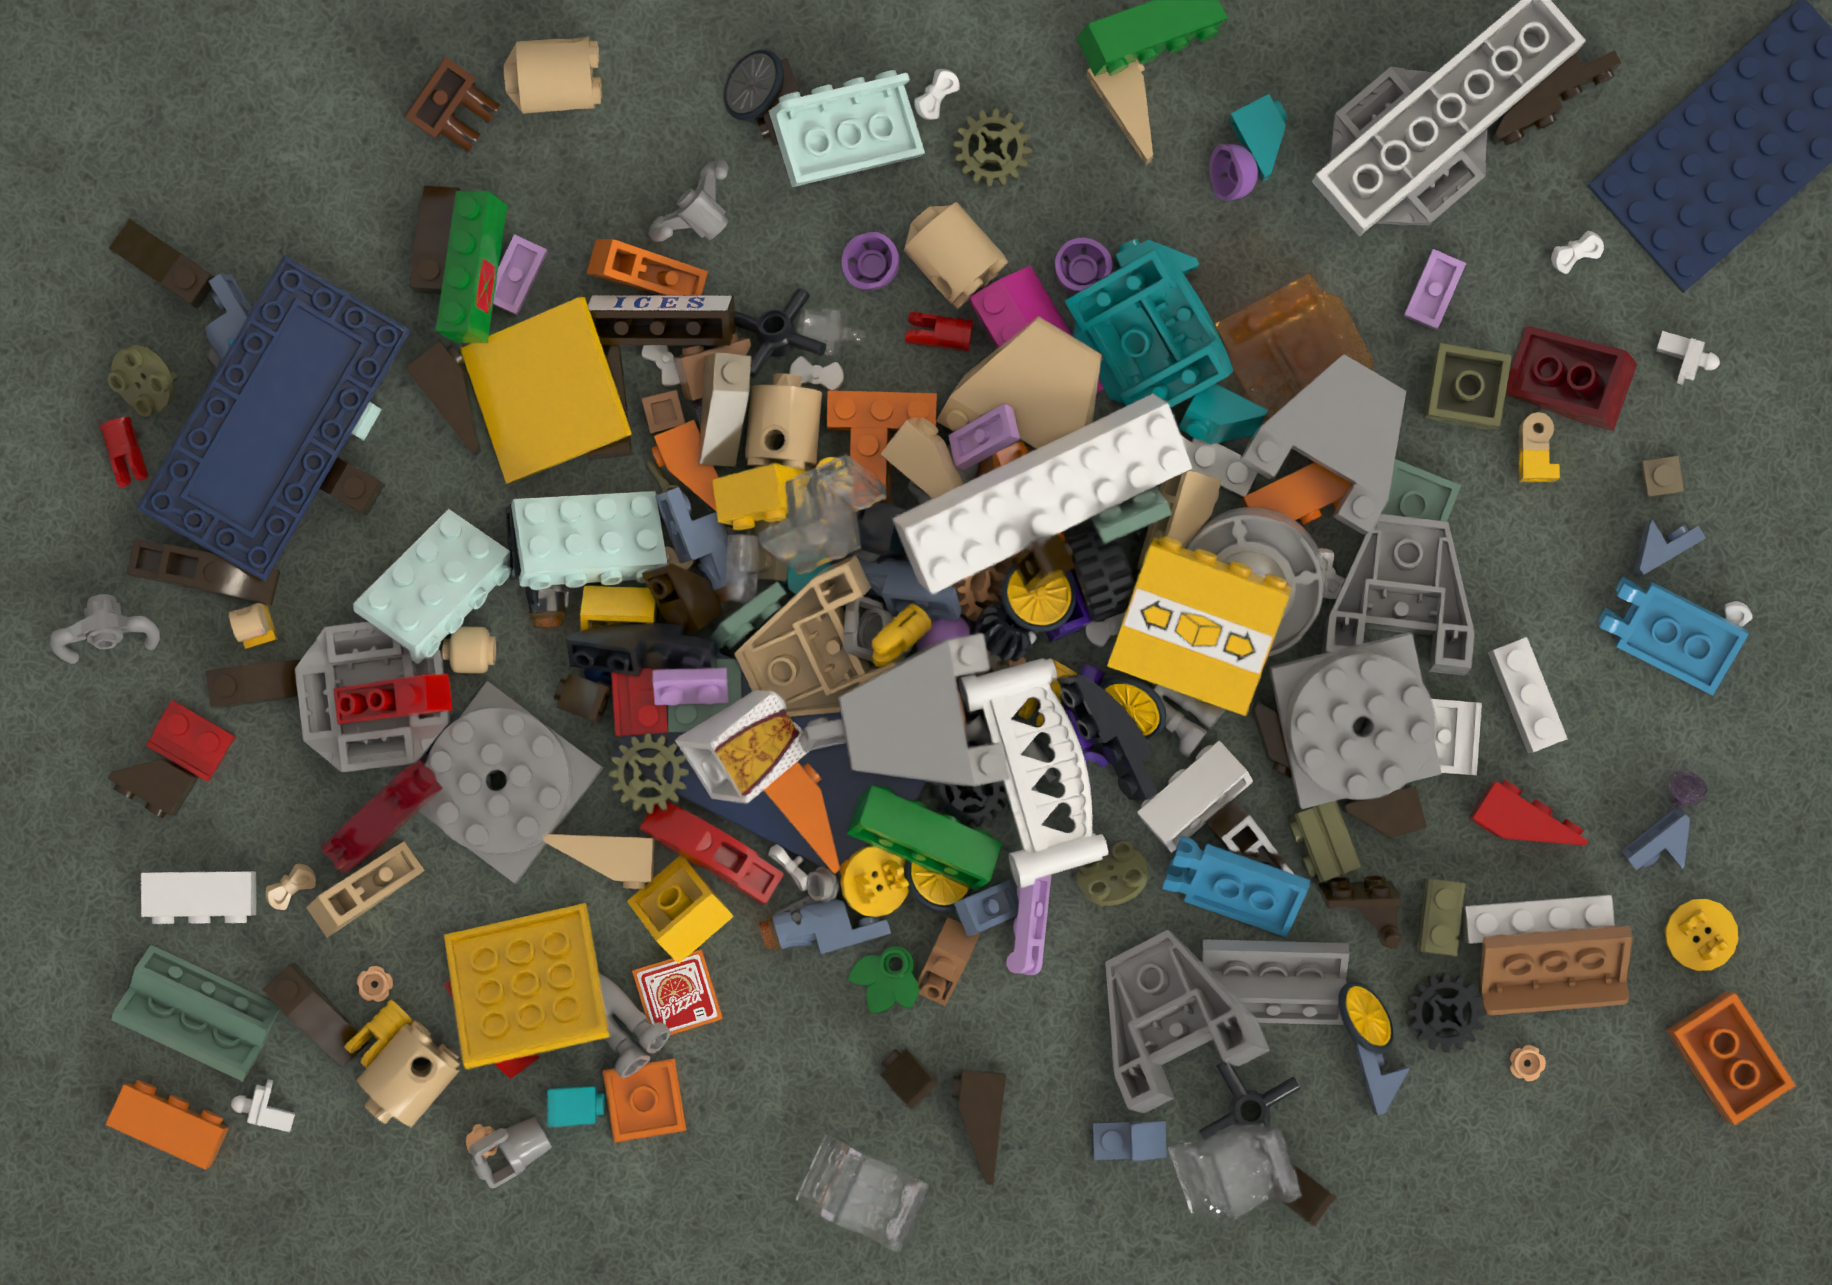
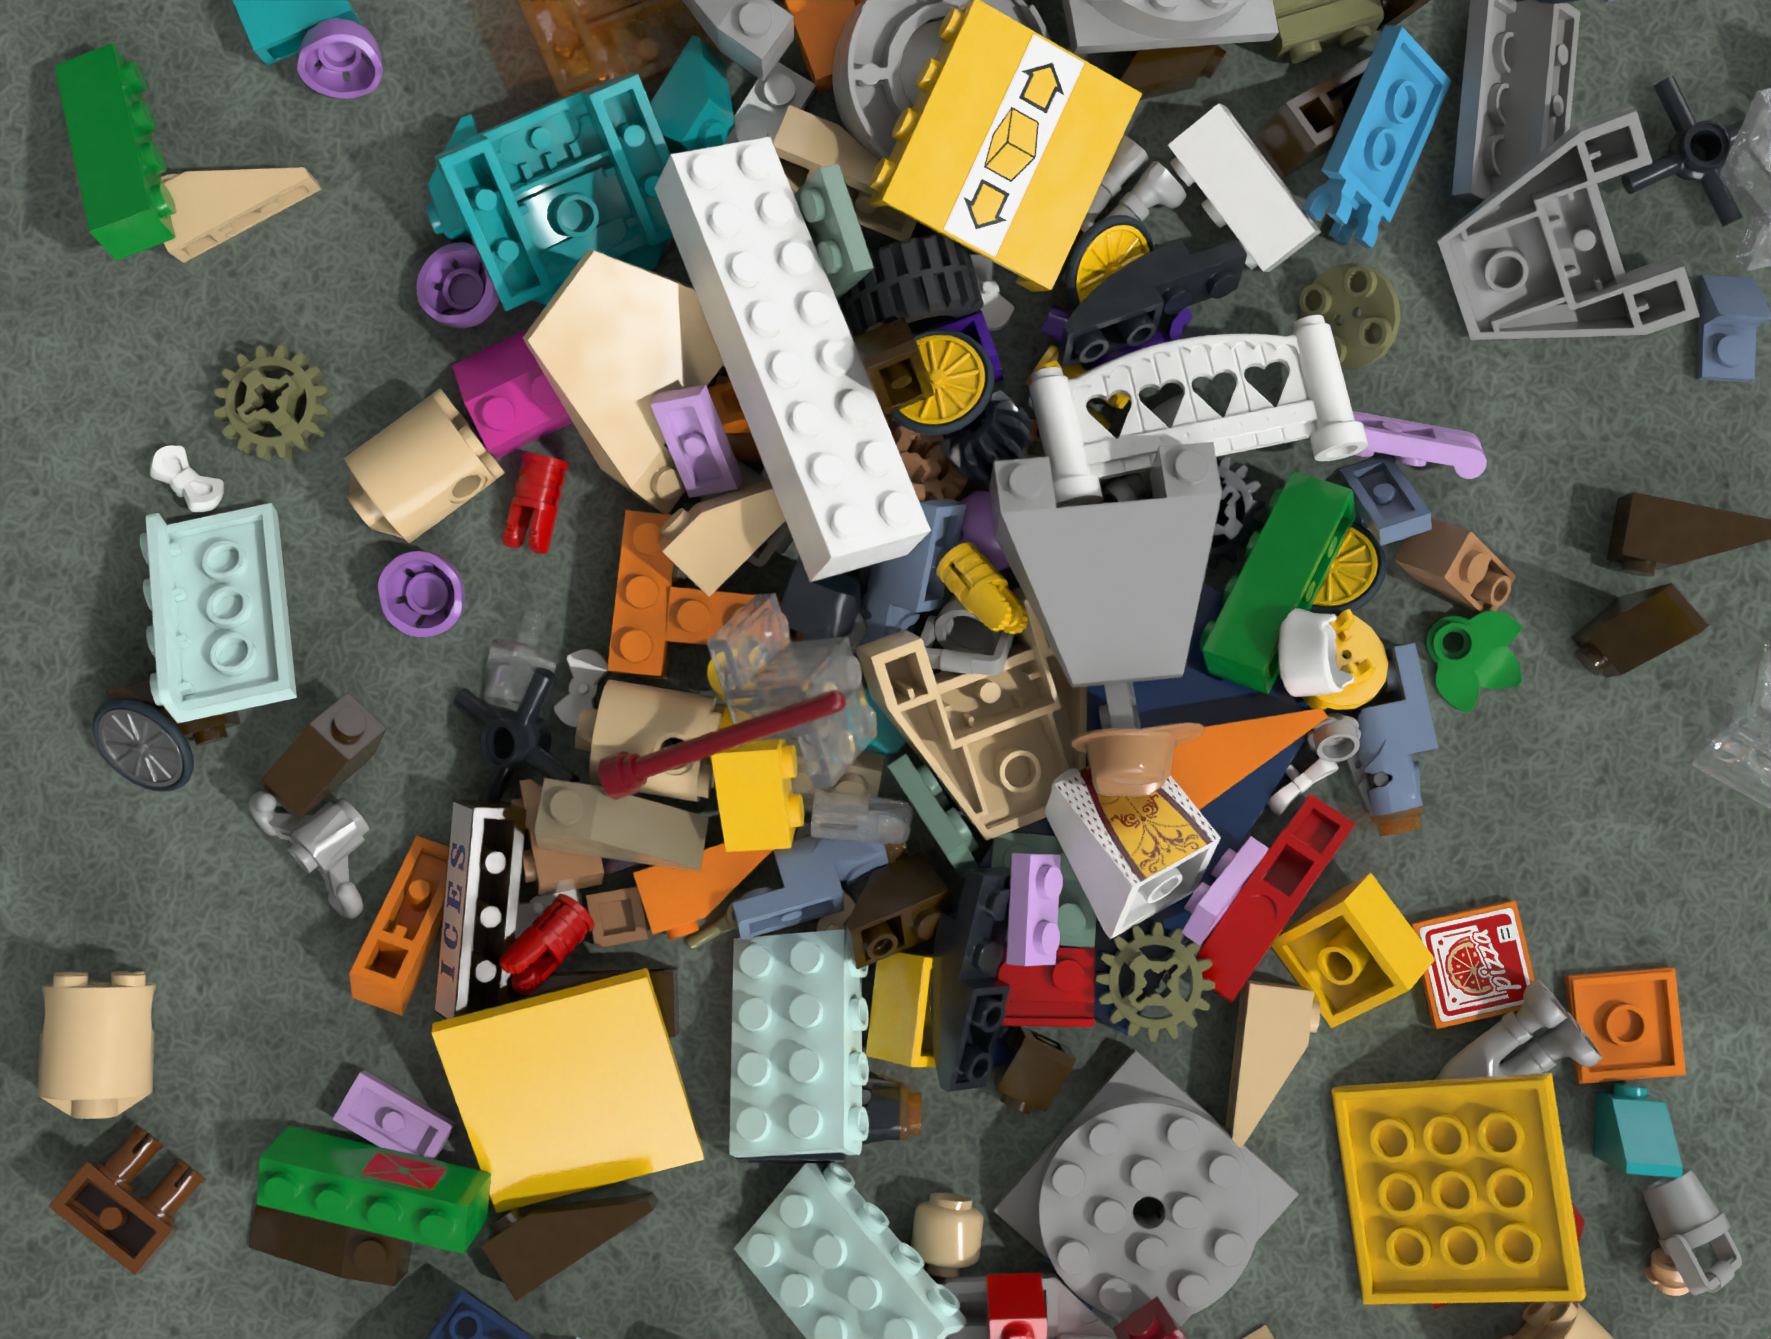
camera: 85 degrees left, 0 degrees up
(642, 366) = (546, 943): none -> red hinge
(704, 806) = (1211, 903): none -> lavender plate
(755, 206) = (324, 756): none -> dark brown slope
(758, 409) = (626, 773): none -> dark red piece
(792, 741) = (1133, 759): none -> medium nougat piece
(873, 855) = (1309, 655): none -> white hair

